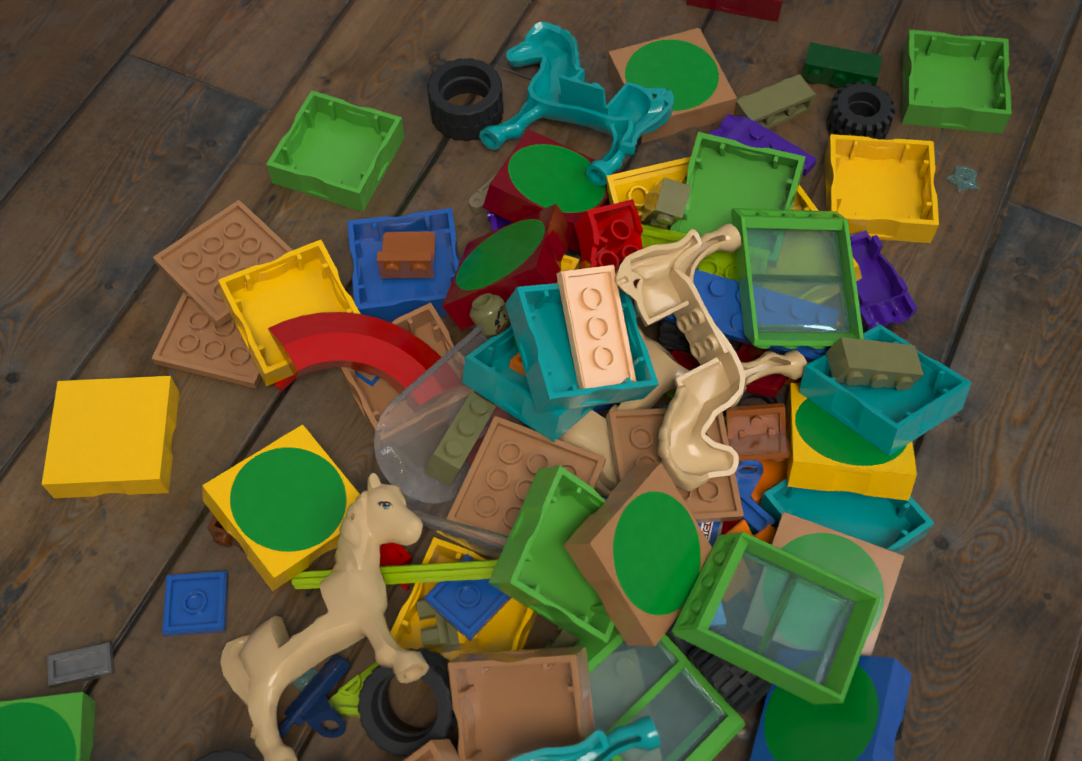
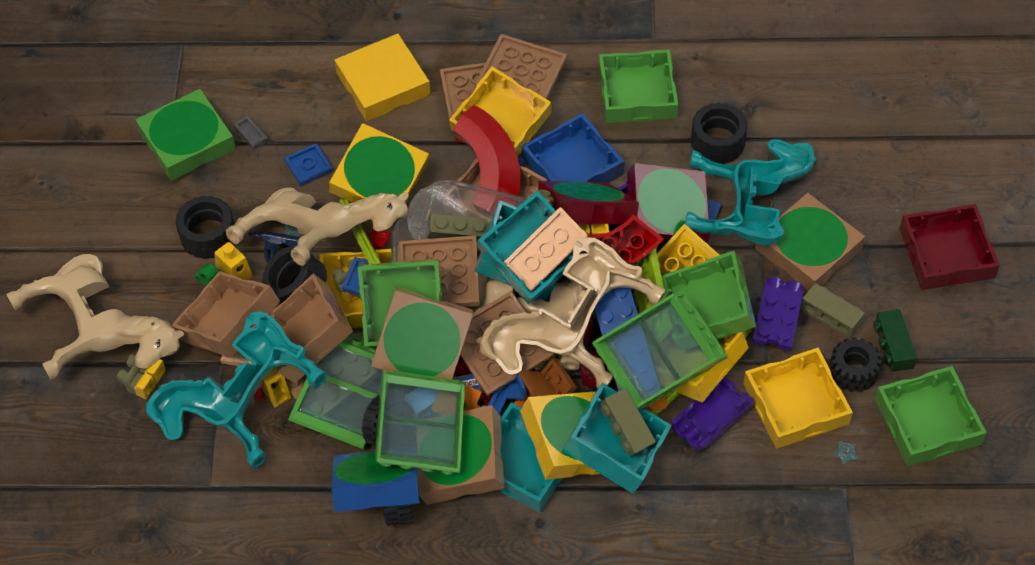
camera: 65 degrees right, 5 degrees down
(407, 255) = (580, 157): dark orange bracket -> none
(665, 204) = (670, 256): olive brick -> none

